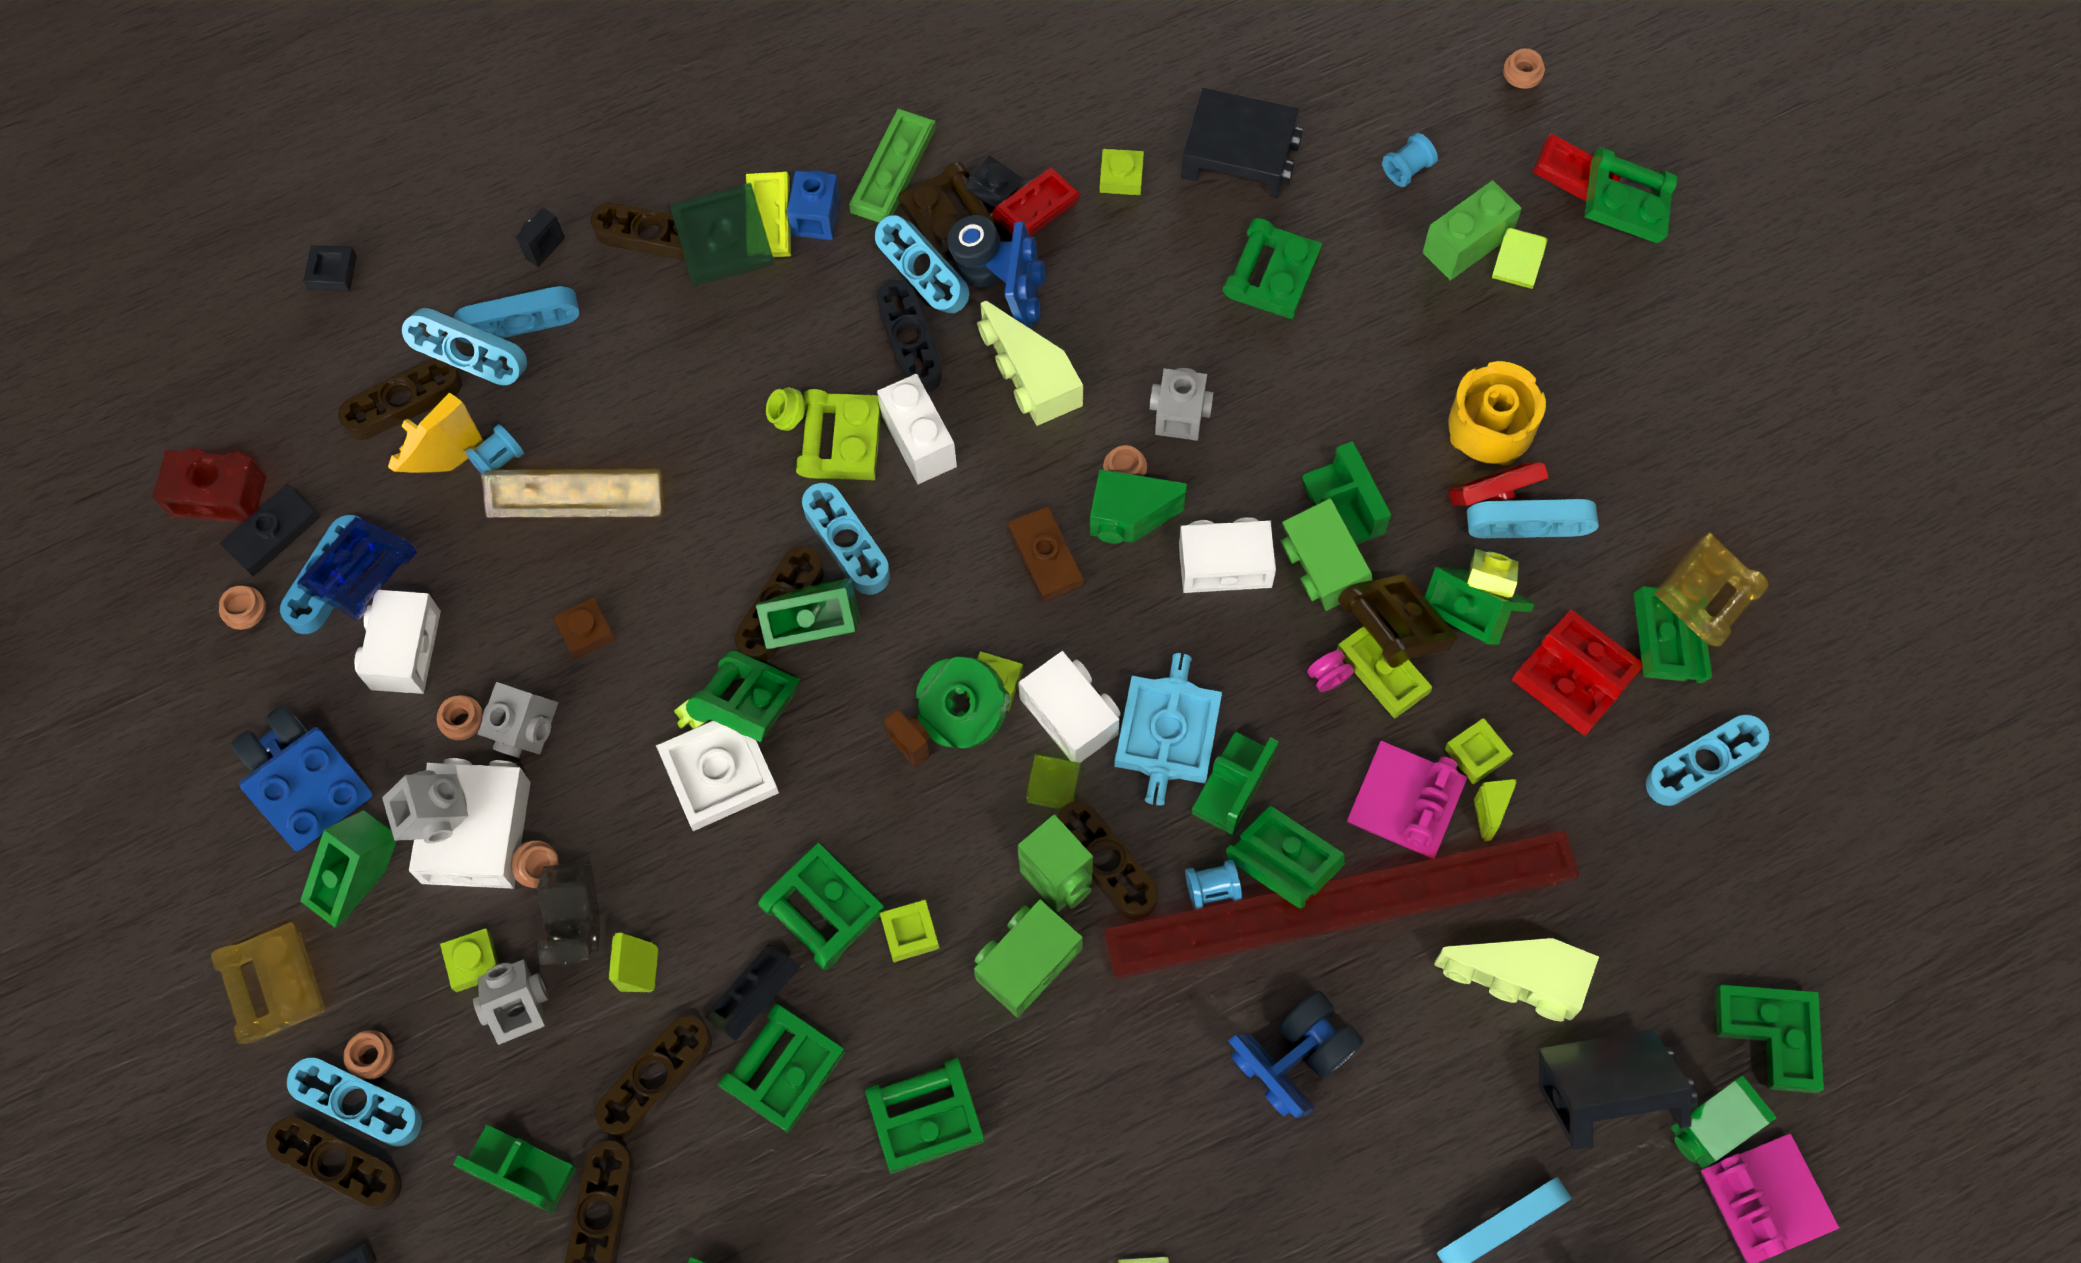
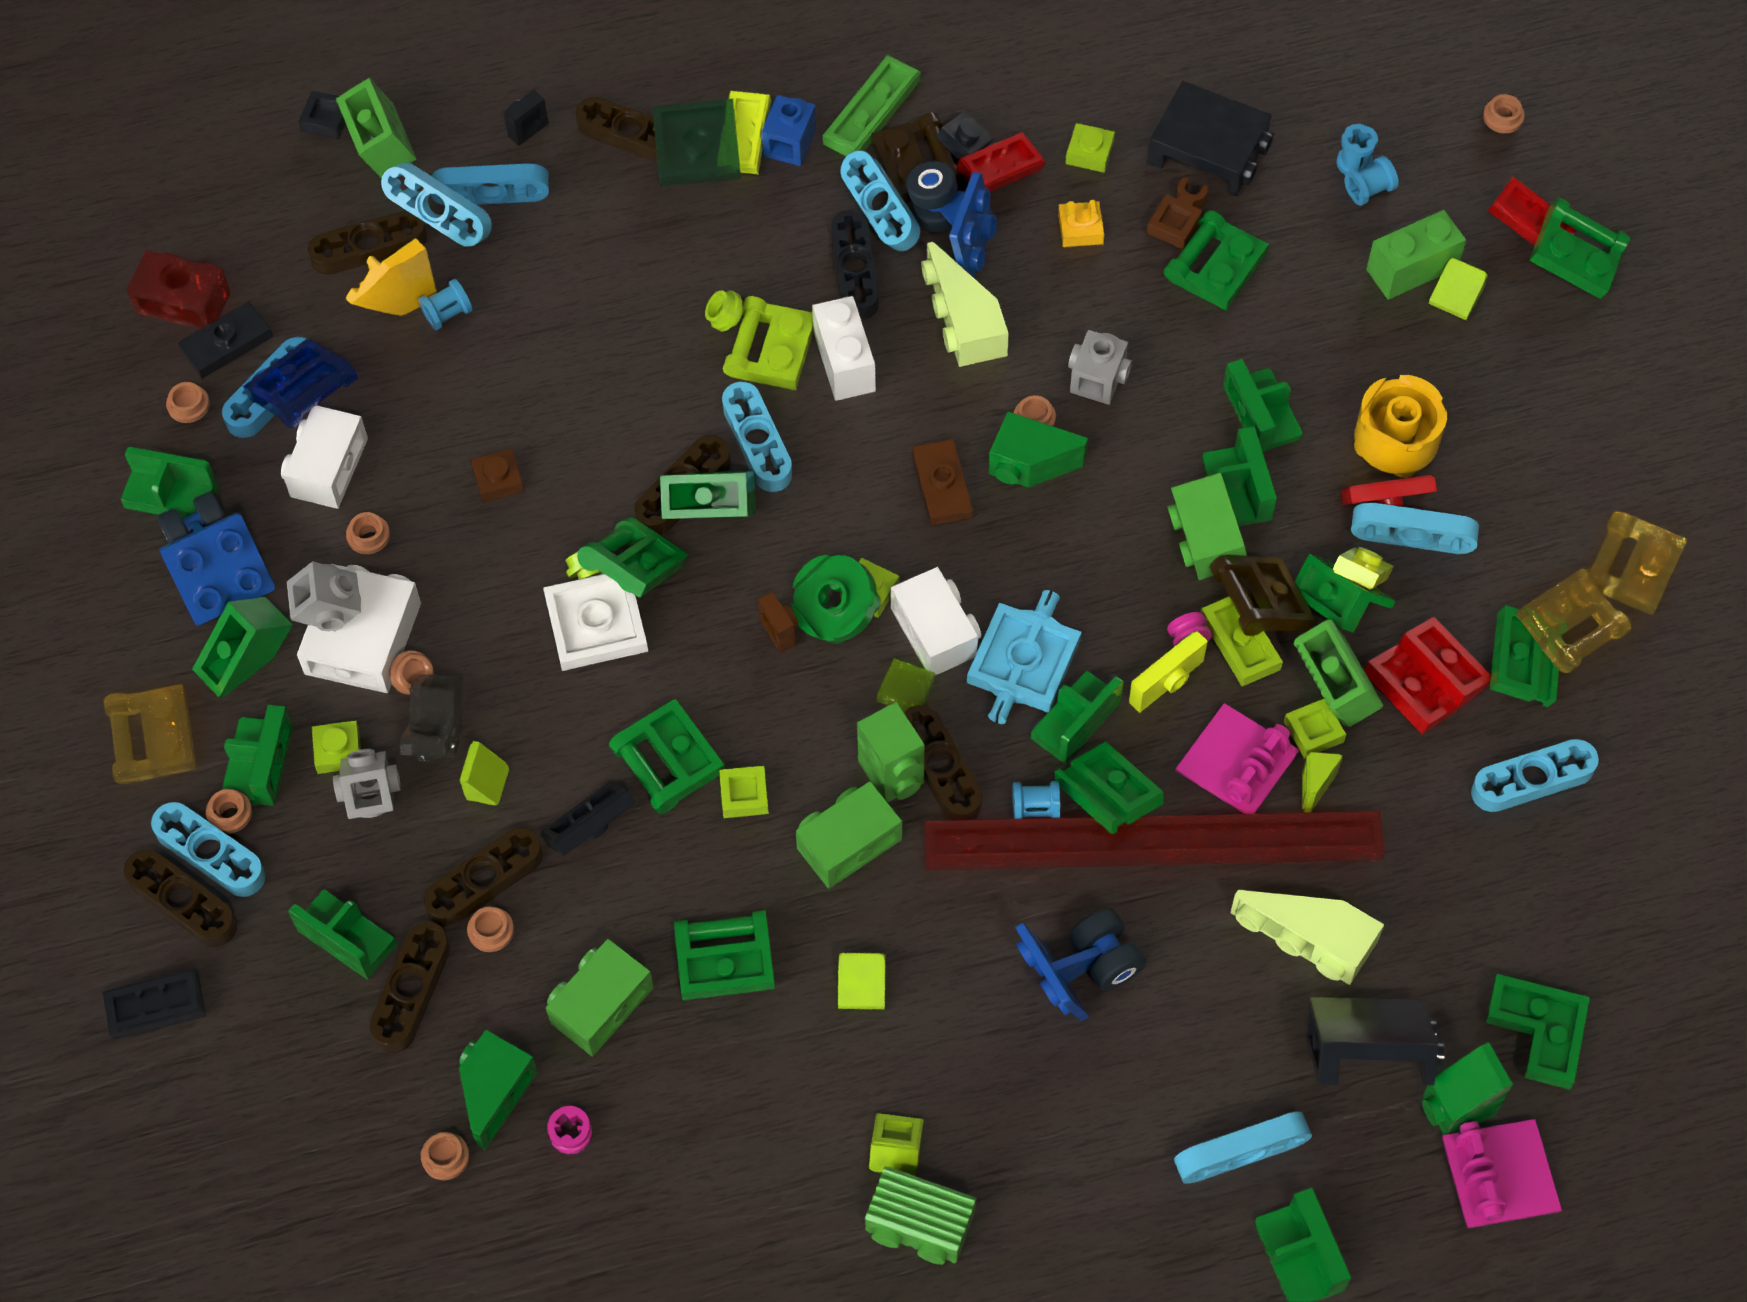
camera: 10 degrees right, 5 degrees down
(235, 701) = (165, 482): none -> green panel
(385, 275) = (375, 127): none -> bright green brick
(389, 987) = (259, 755): none -> green panel
(517, 720) = (420, 542): light grey brick -> none
(573, 493) = (511, 352): clear yellow plate -> none
(672, 1134) = (490, 929): none -> nougat plate
(795, 1075) = (610, 899): green plate -> none
(801, 1190) = (599, 996): none -> bright green brick
(1073, 1117) = (861, 981): none -> lime slope
(1129, 253) = (1081, 224): none -> yellow tile
(1225, 230) = (1179, 217): none -> reddish brown plate
(1226, 555) = (1113, 512): white brick -> none
(1319, 719) = (1168, 672): none -> neon yellow plate
(1350, 413) = (1262, 404): none -> green panel
(1390, 126) = (1363, 146): none -> dark azure bush
(1491, 690) = (1337, 673): none -> bright green brick
(1771, 515) = (1647, 568): none -> clear yellow plate

